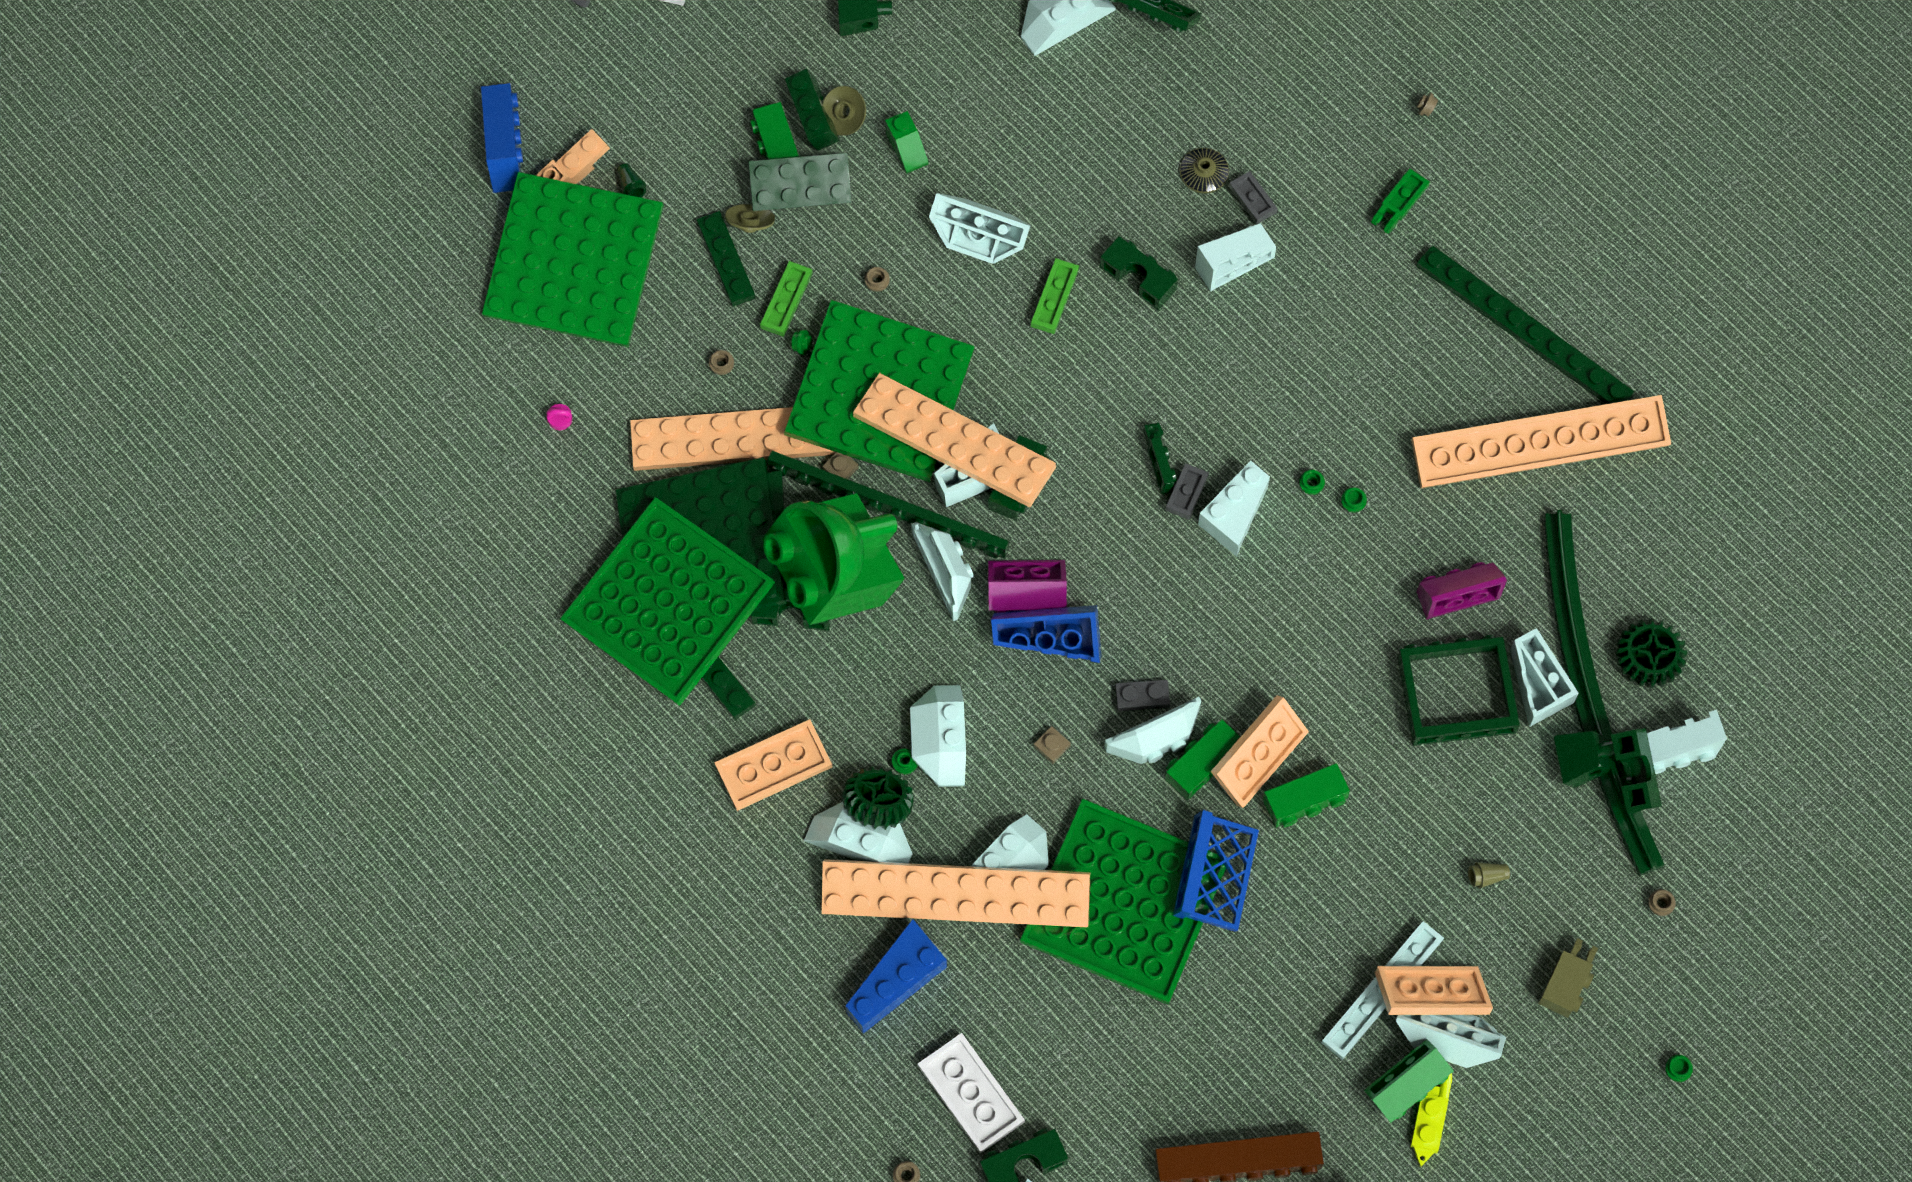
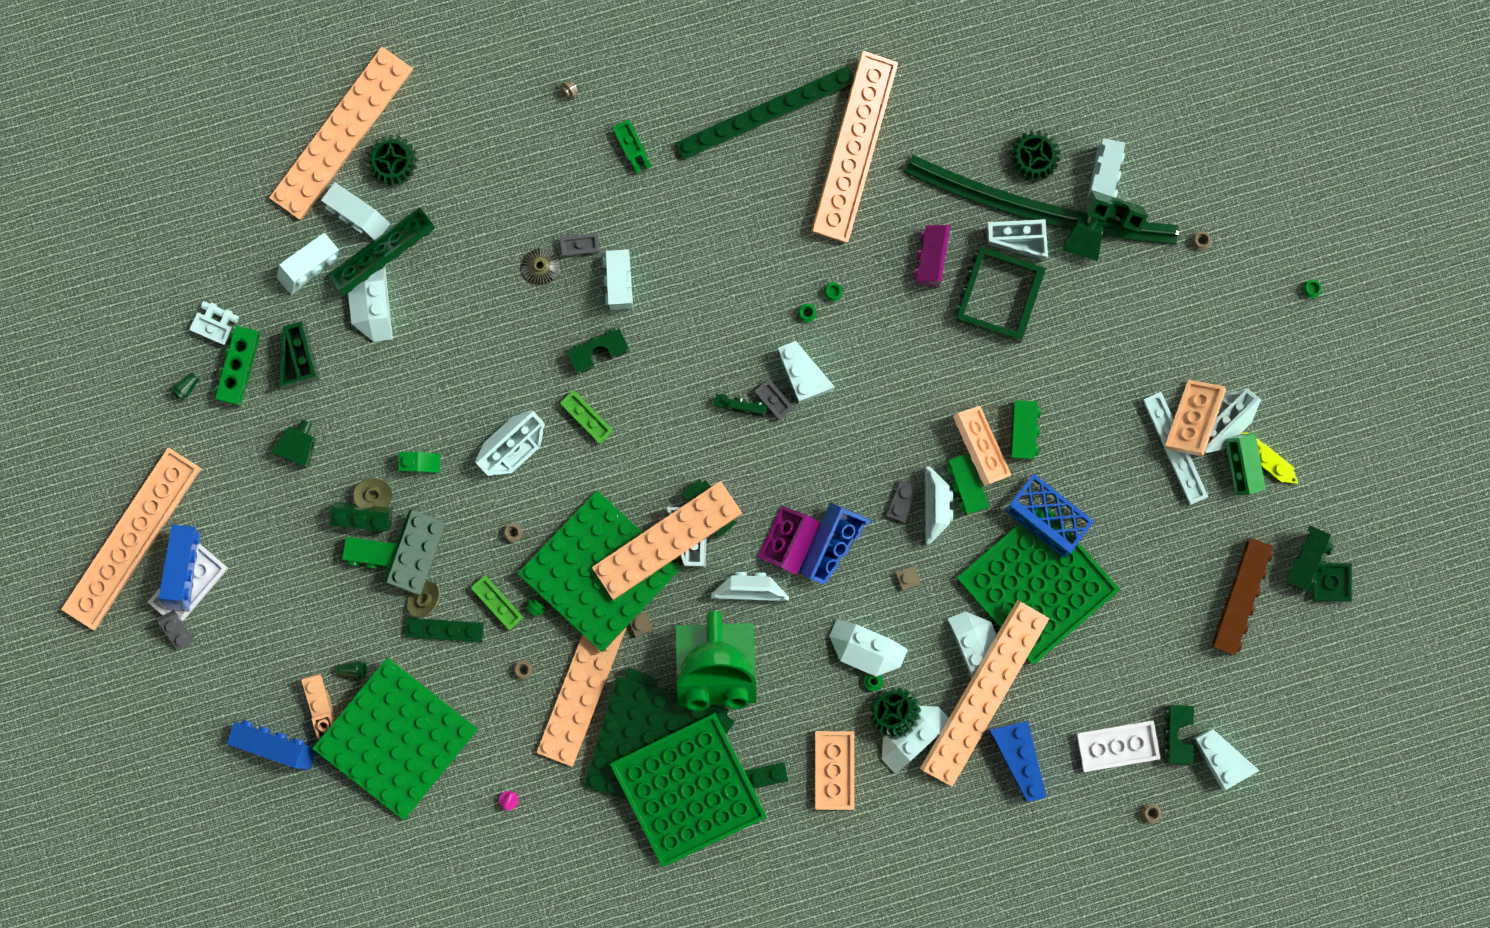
camera: 65 degrees left, 15 degrees up
(878, 501) = (693, 601): dark green plate -> none
(1487, 873) = (1130, 343): olive cone -> none
(1568, 981) = (1224, 326): olive hinge -> none

